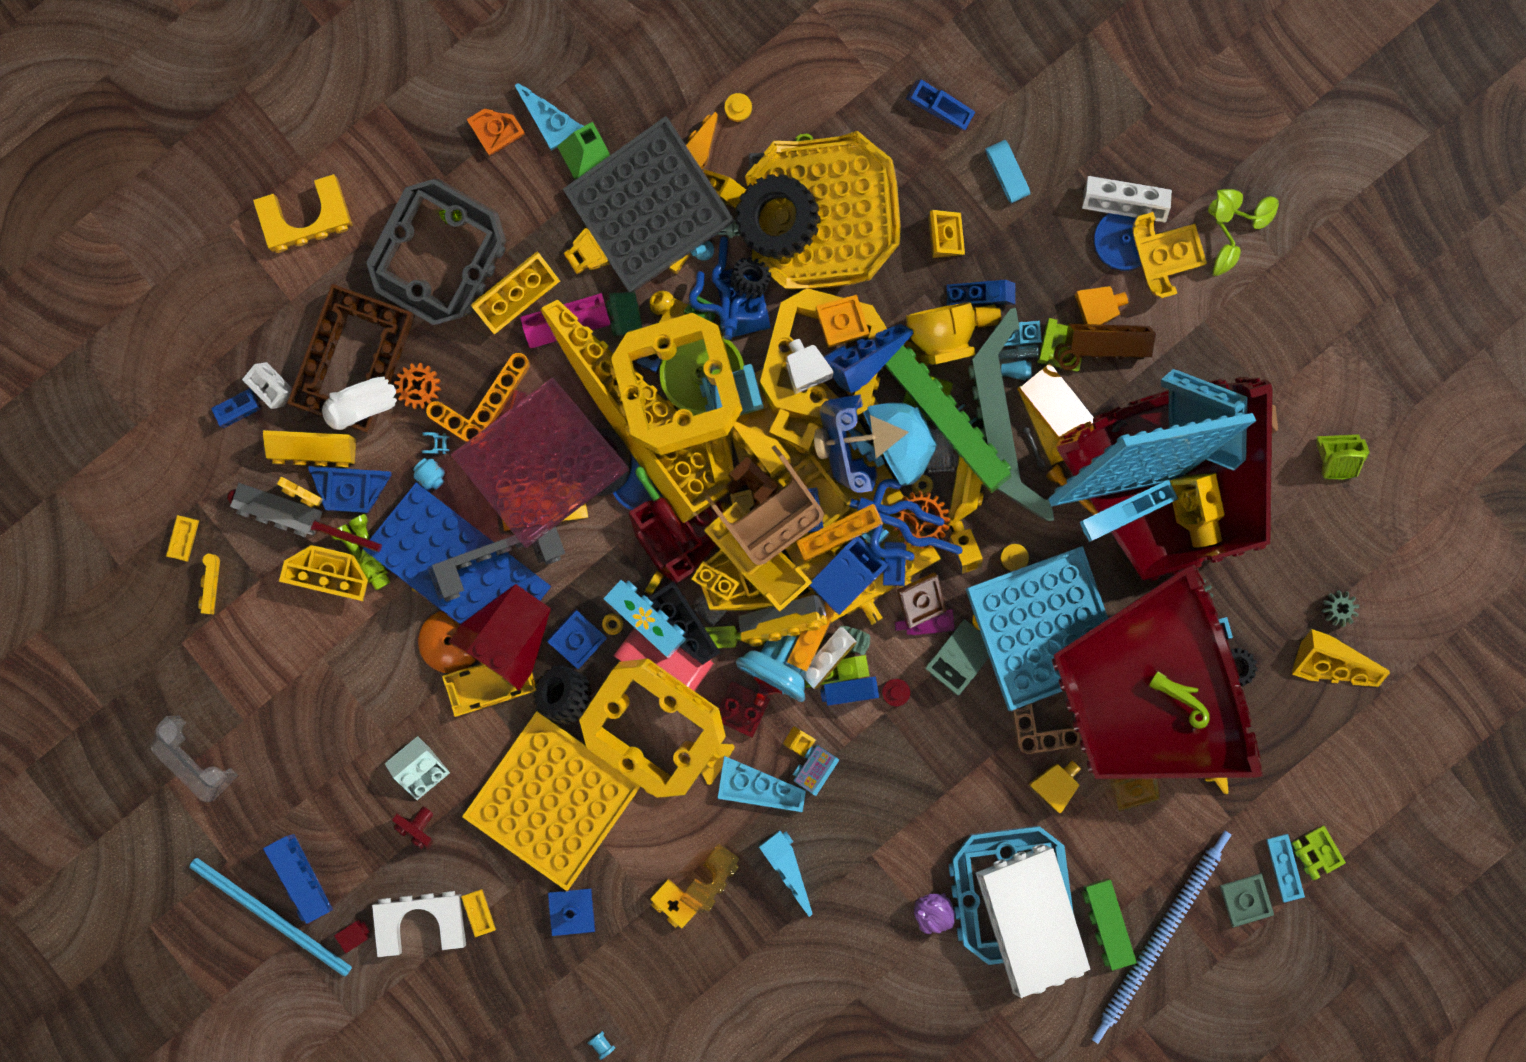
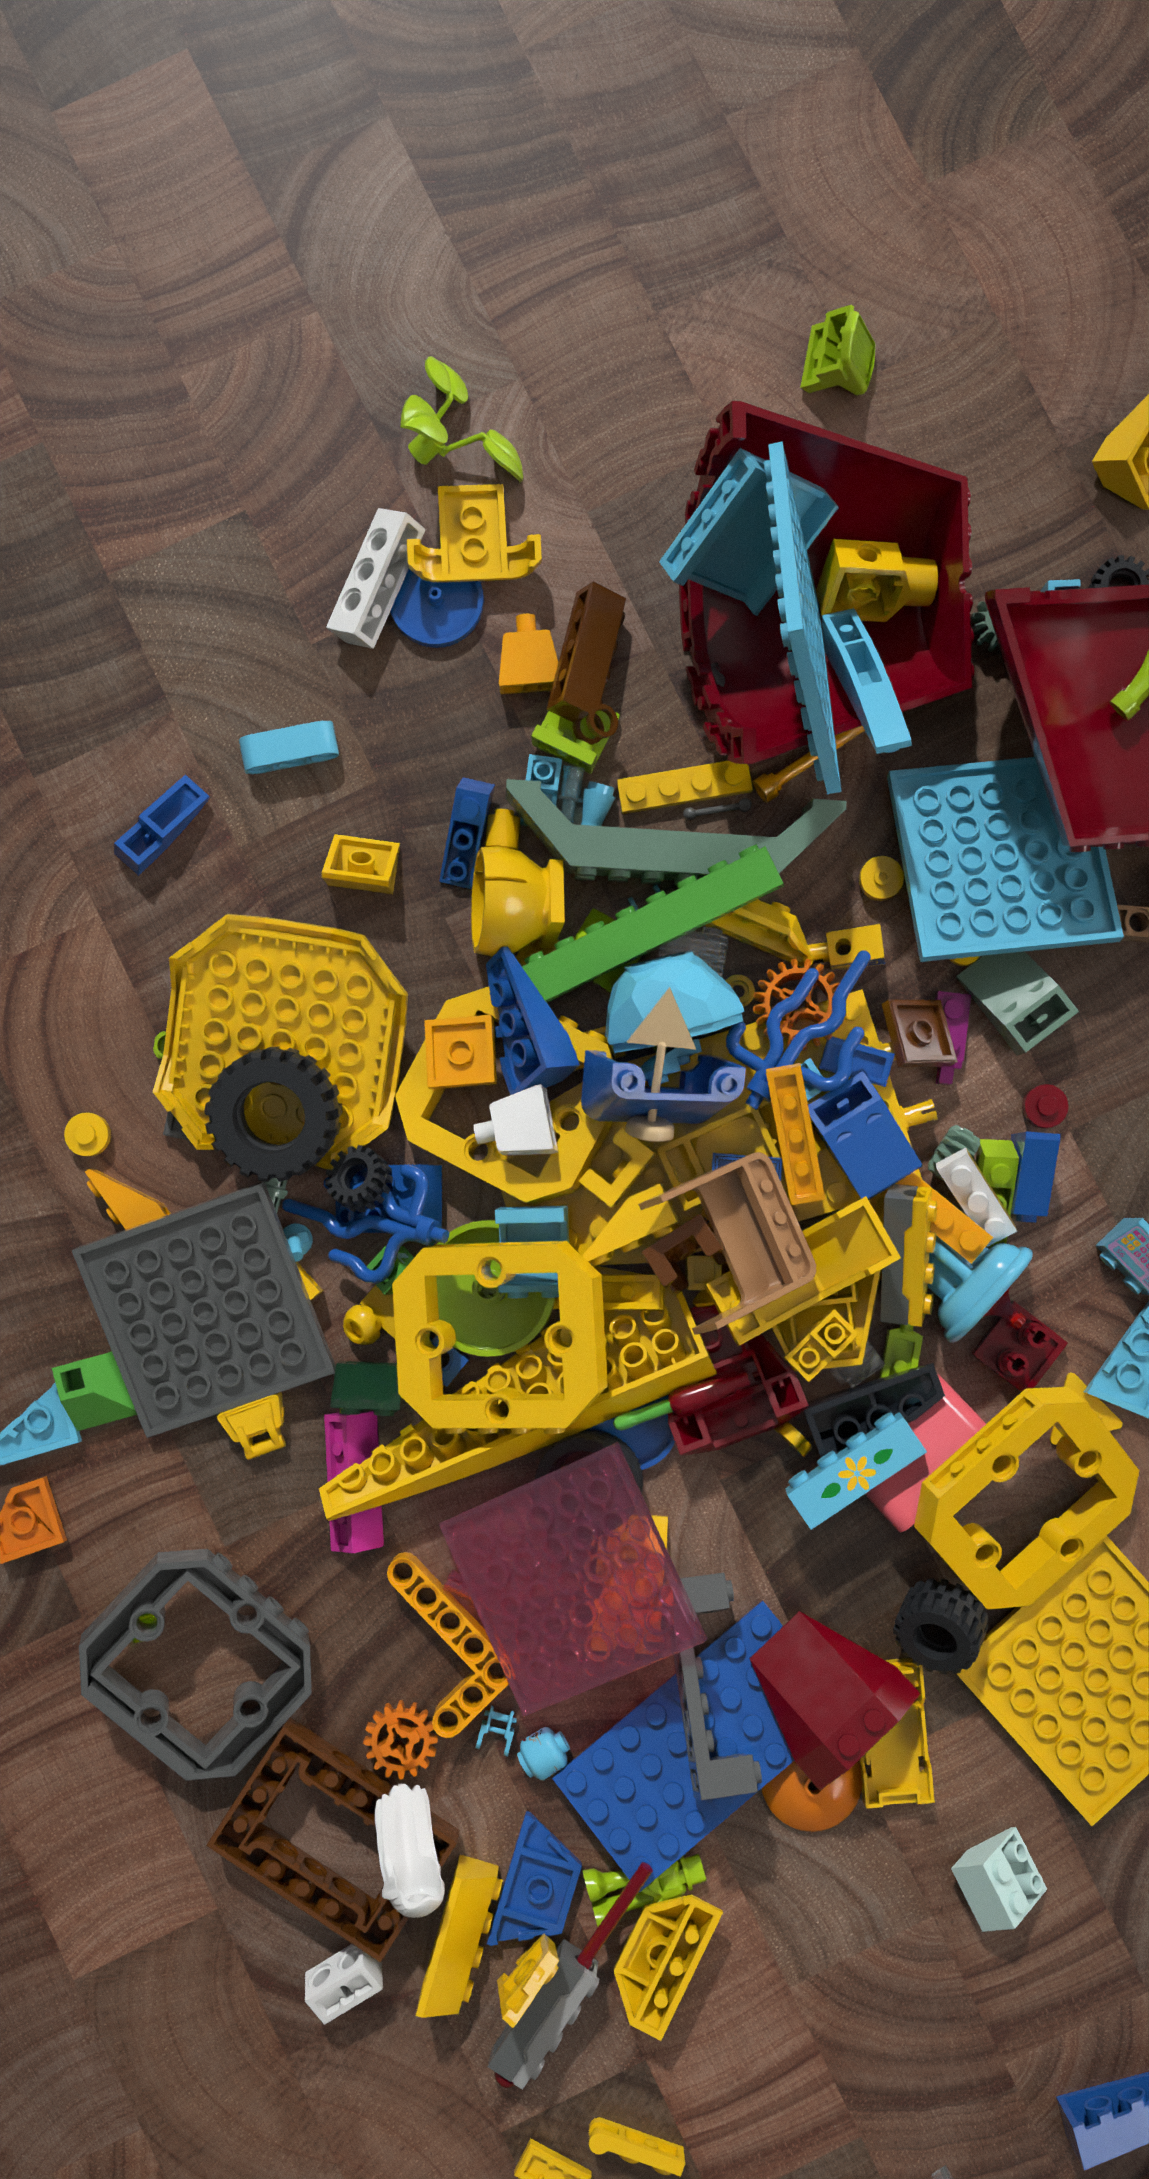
camera: 75 degrees left, 0 degrees up
(236, 408) = (368, 2041): blue hinge -> none
(332, 218) = (99, 1813): yellow arch -> none
(415, 827) = (1098, 1909): dark red plate -> none
(515, 292) = (292, 1553): yellow slope -> none
(576, 639) = (855, 1581): blue hinge -> none
(605, 624) = (848, 1526): yellow plate -> none
(726, 188) = (208, 1182): yellow slope -> none
(798, 741) = (1086, 1272): yellow slope -> none
(1055, 402) = (661, 760): tile -> none
(1340, 617) = (1071, 403): sand green gear -> none

